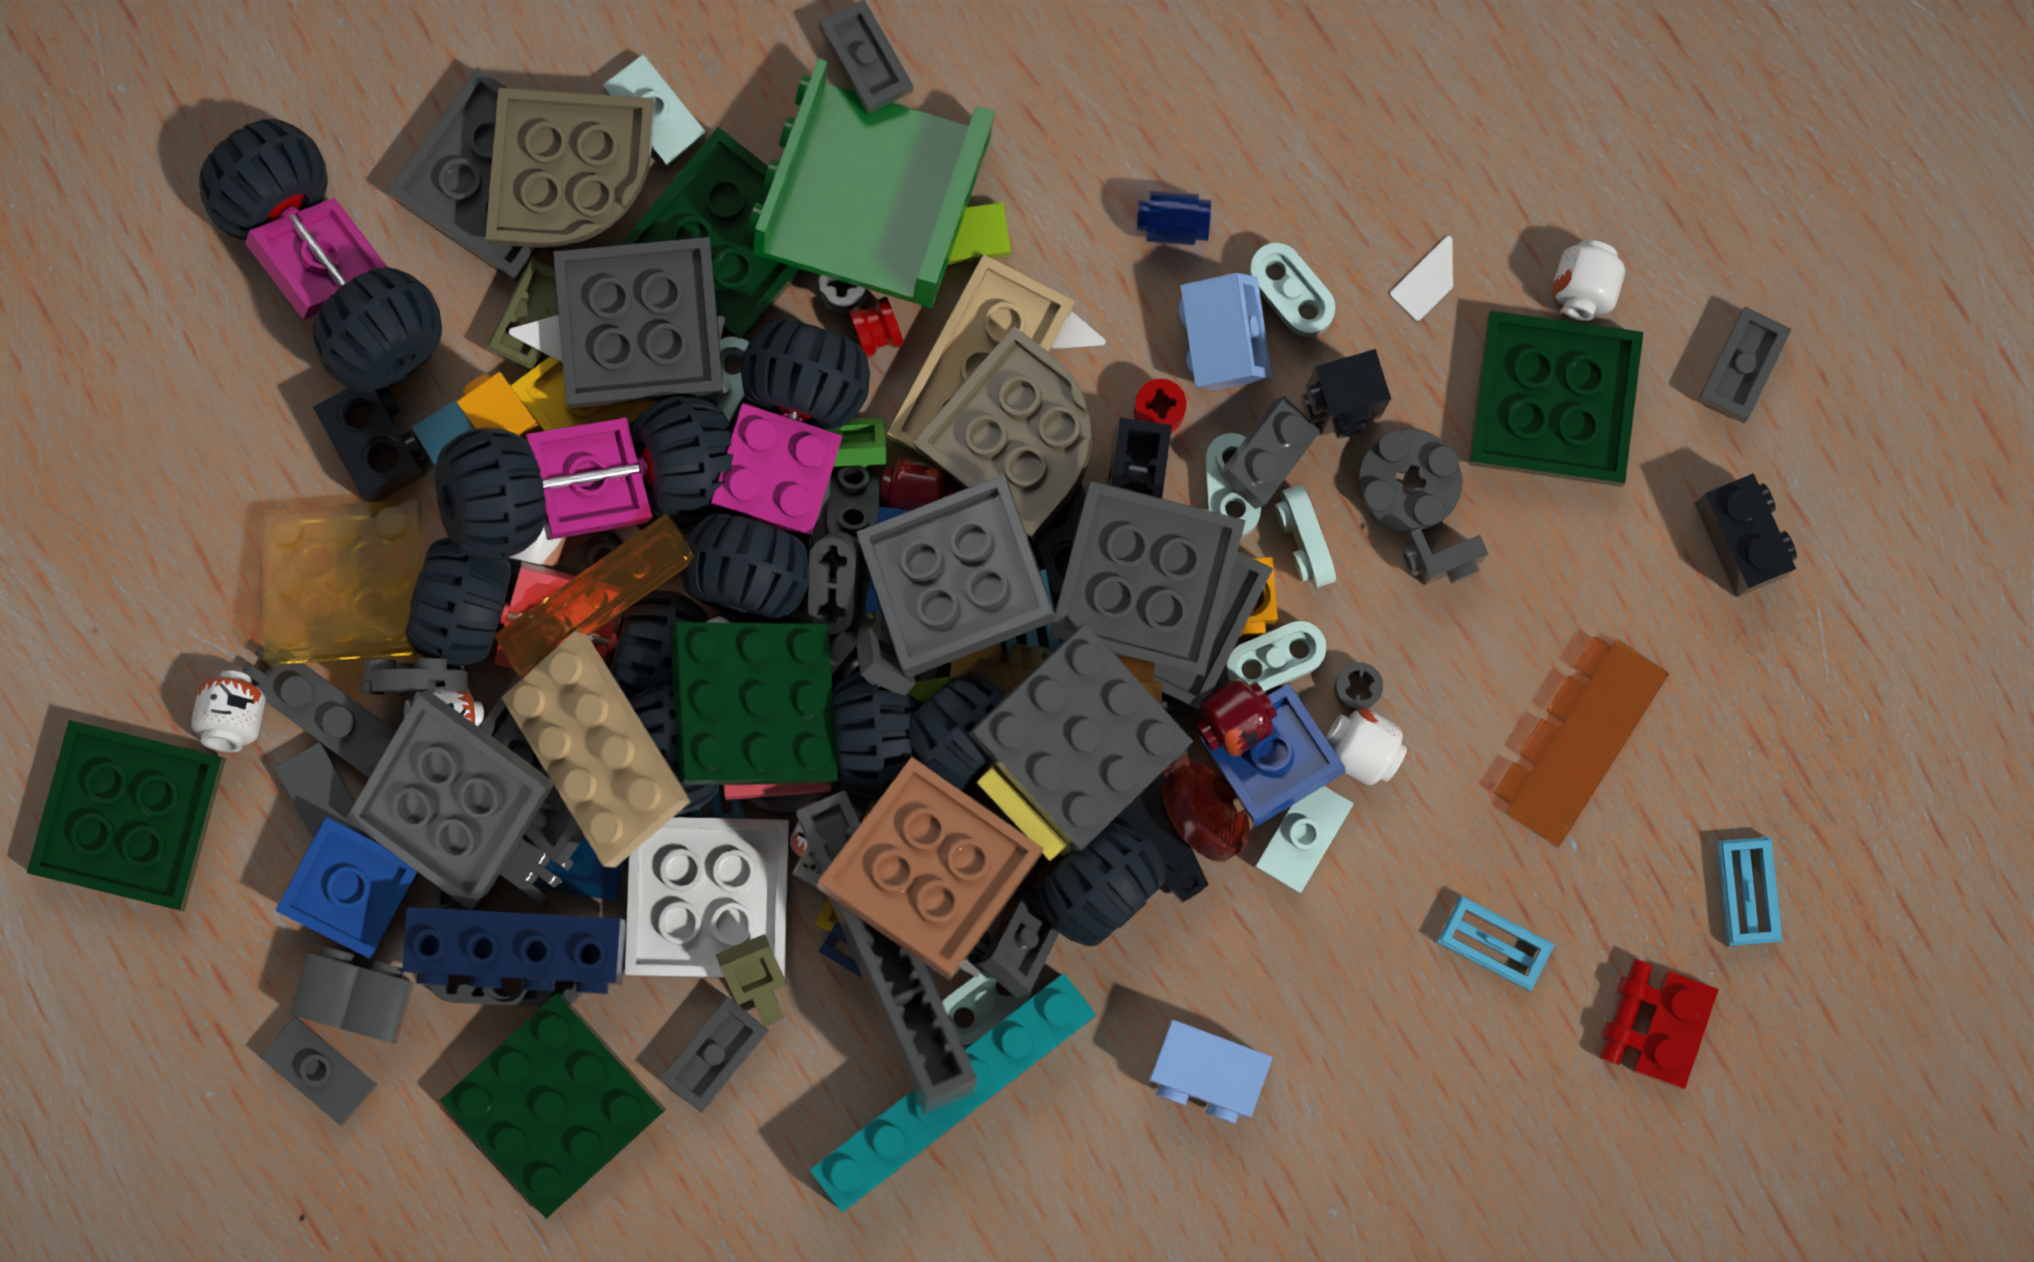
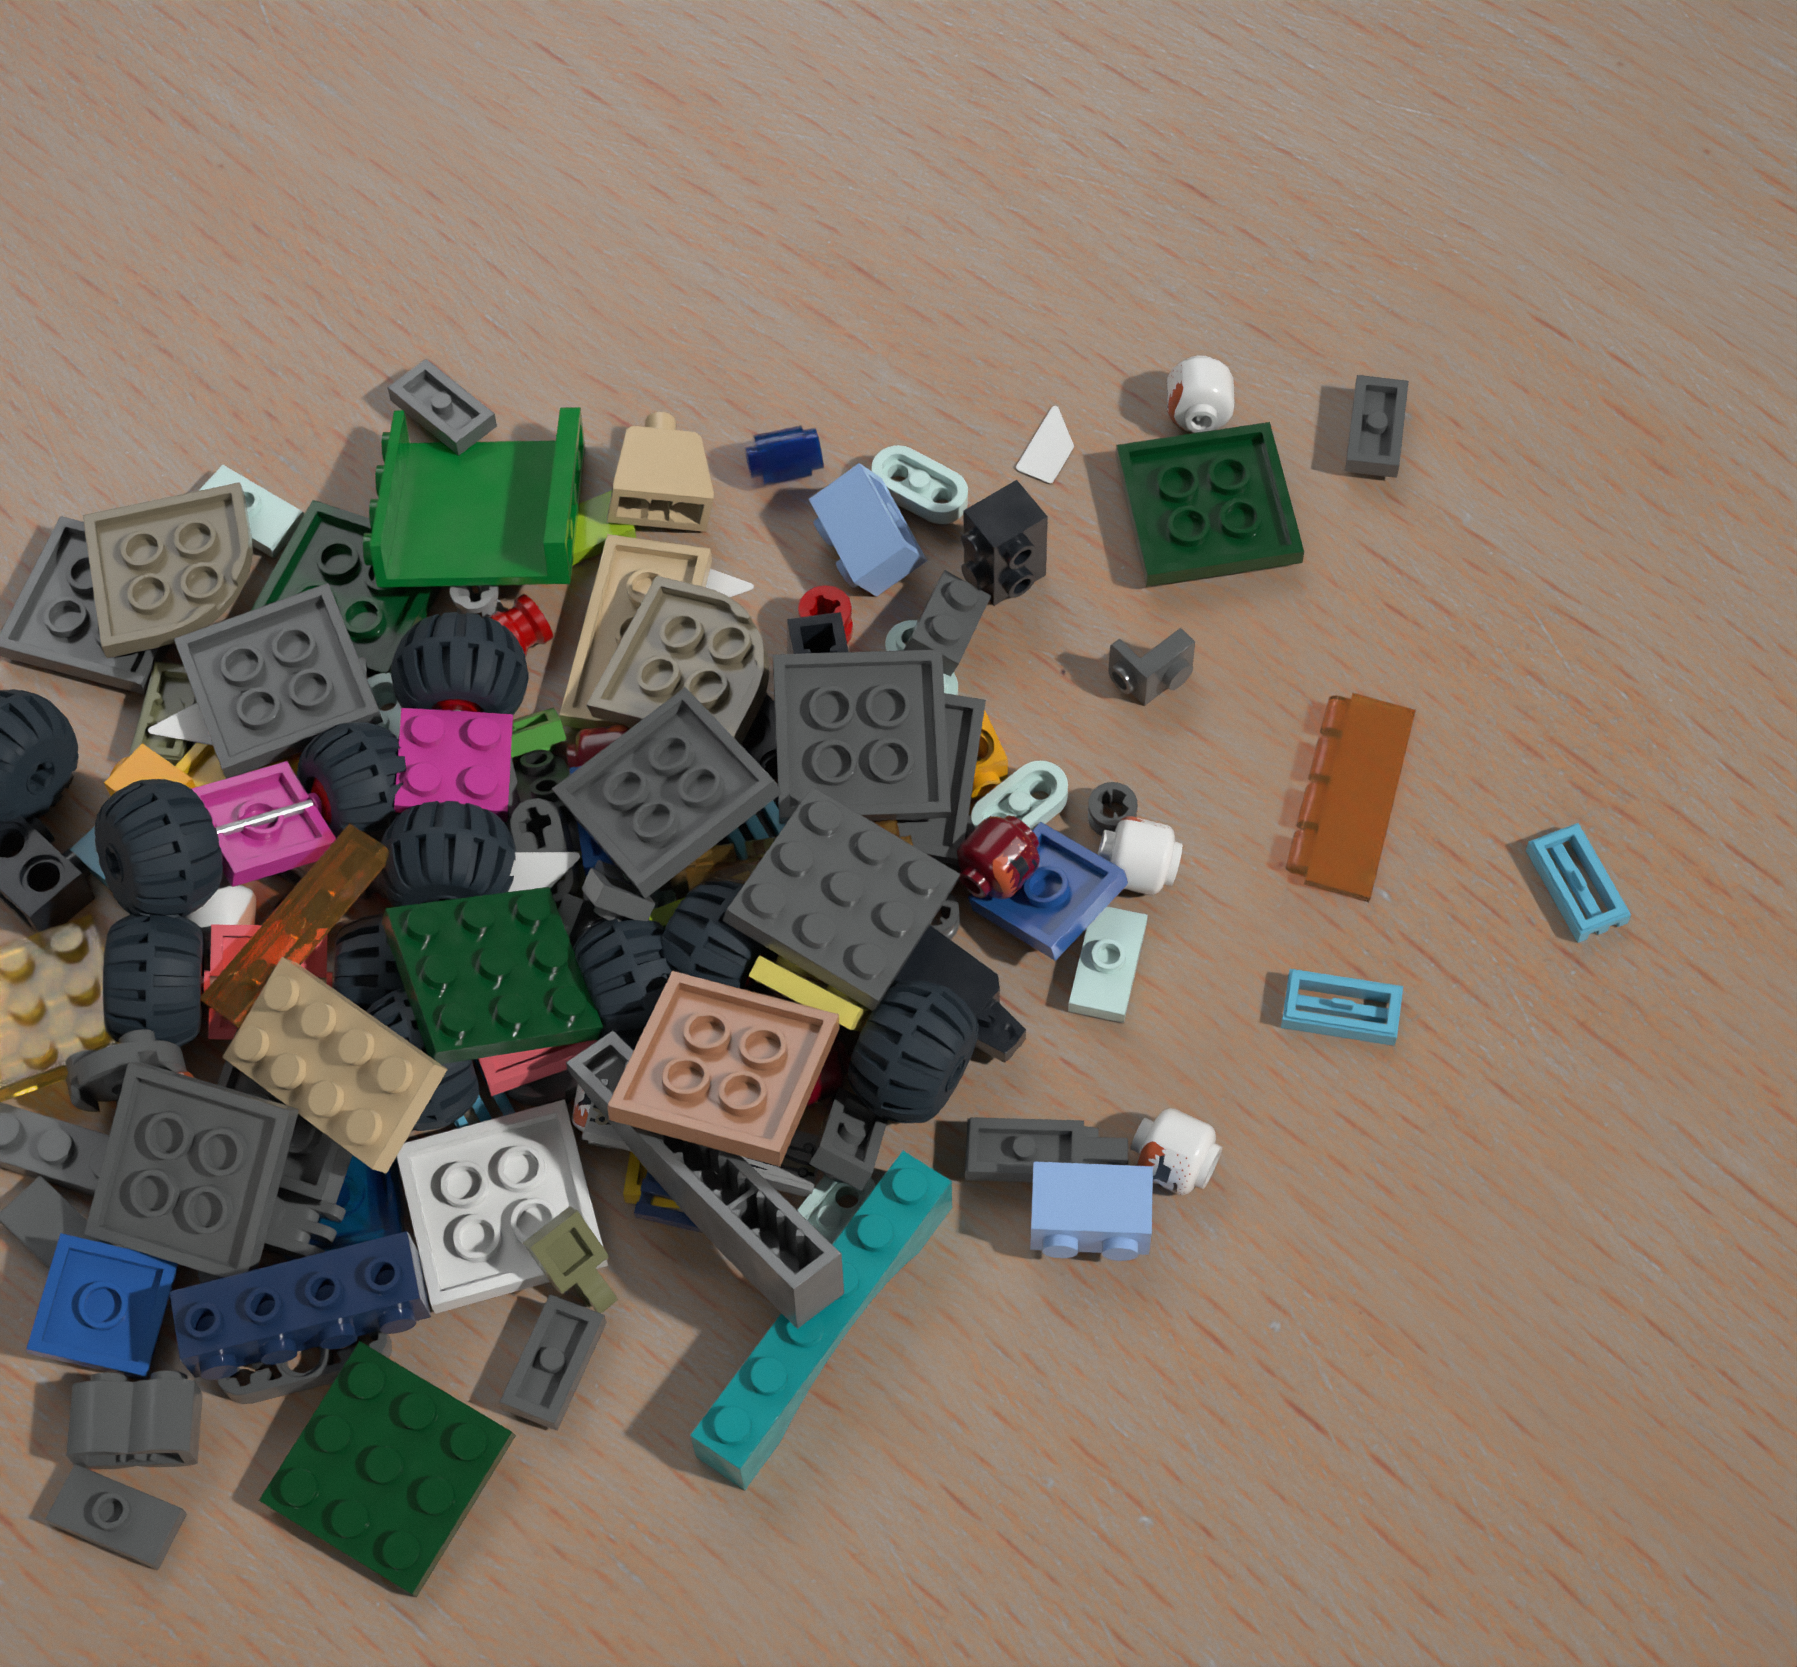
camera: 10 degrees left, 20 degrees down
(823, 604) = (540, 869): none -> white sticker
(1051, 208) = (662, 478): none -> tan torso
(1183, 996) = (1009, 1146): none -> dark grey hinge
(1204, 812) = (998, 957): clear red tile -> none
(1301, 1036) = (1178, 1149): none -> white head
(1313, 557) = (1020, 696): light aqua plate -> none
(1435, 466) = (1087, 589): dark grey plate -> none
(1673, 1029) = (1557, 1032): red plate -> none
(1746, 534) = (1439, 562): black brick -> none

